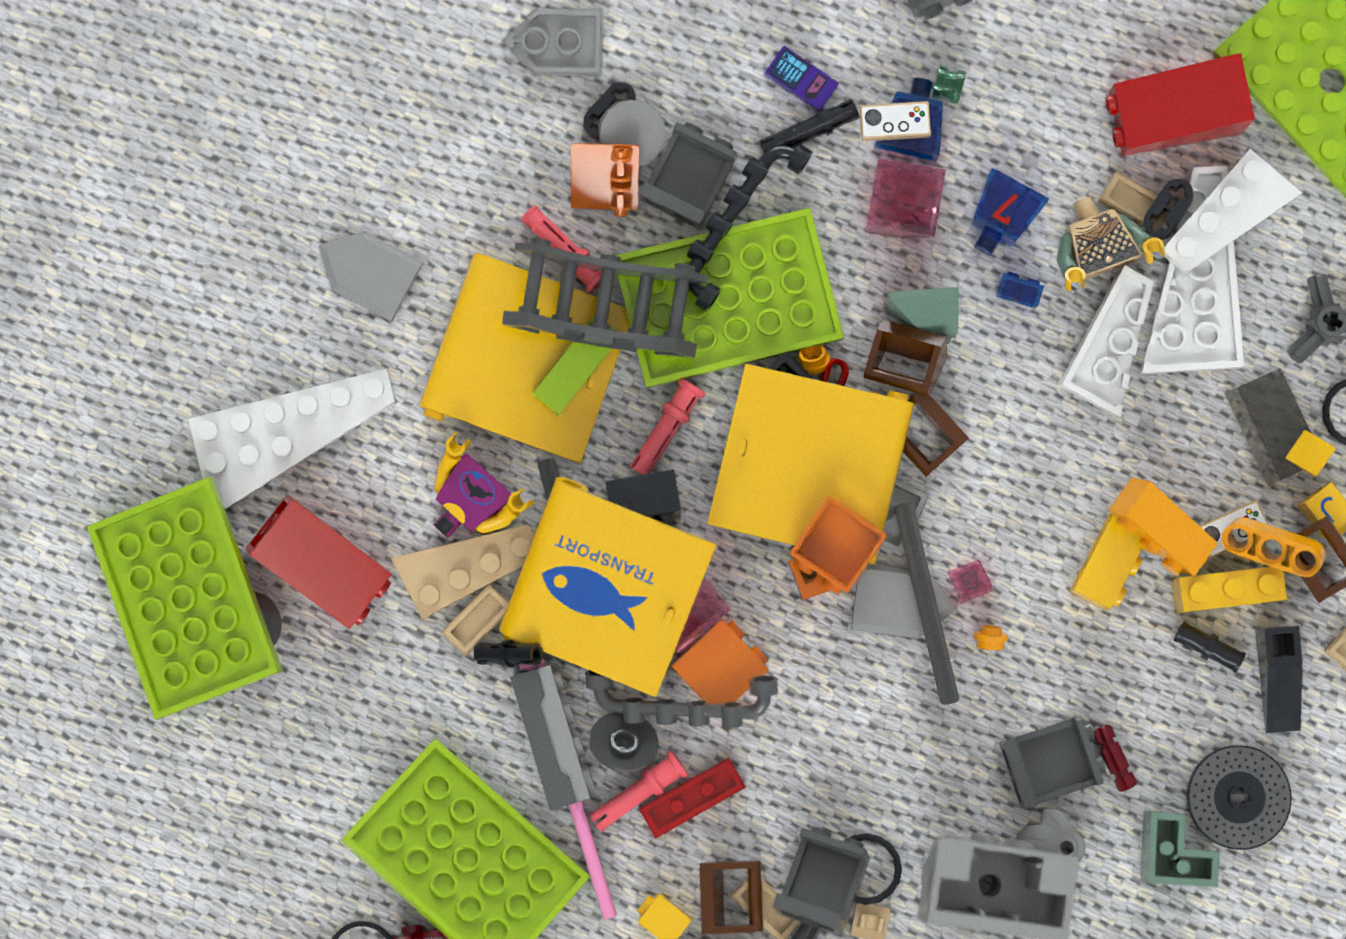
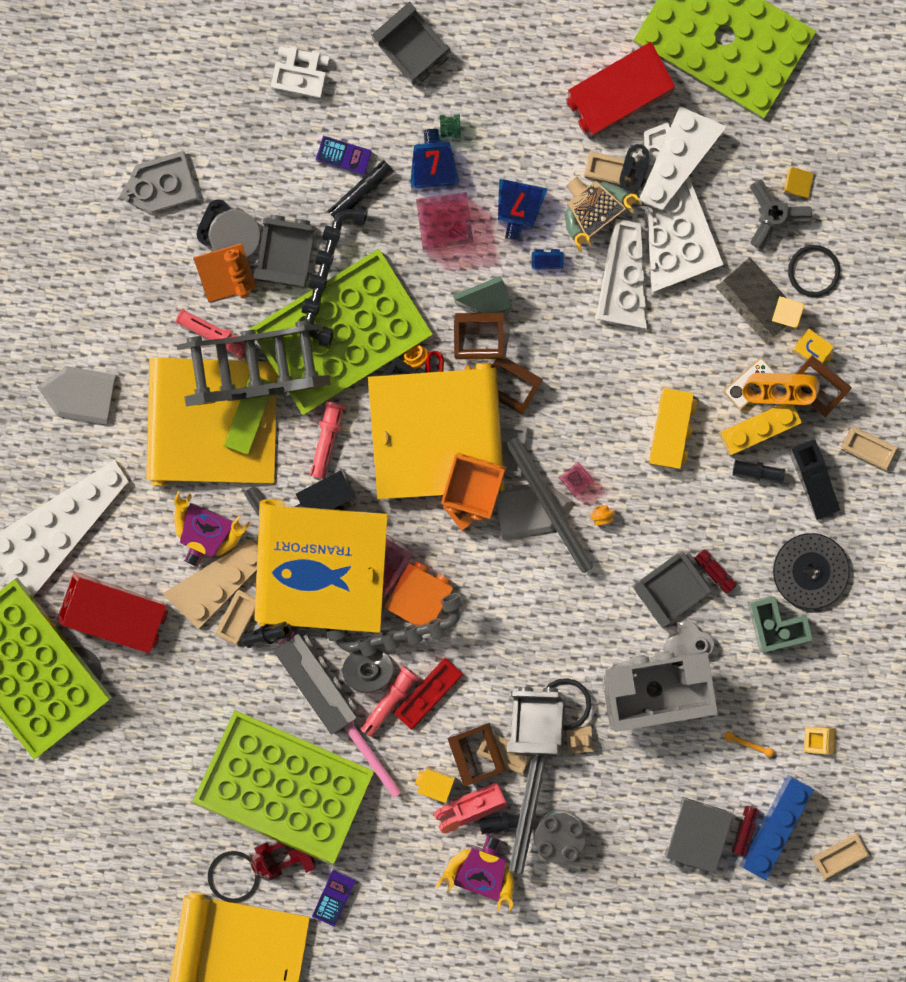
camera: 20 degrees left, 5 degrees up
(895, 121) = (419, 167): tile -> none
(1162, 527) = (698, 400): light orange brick -> none

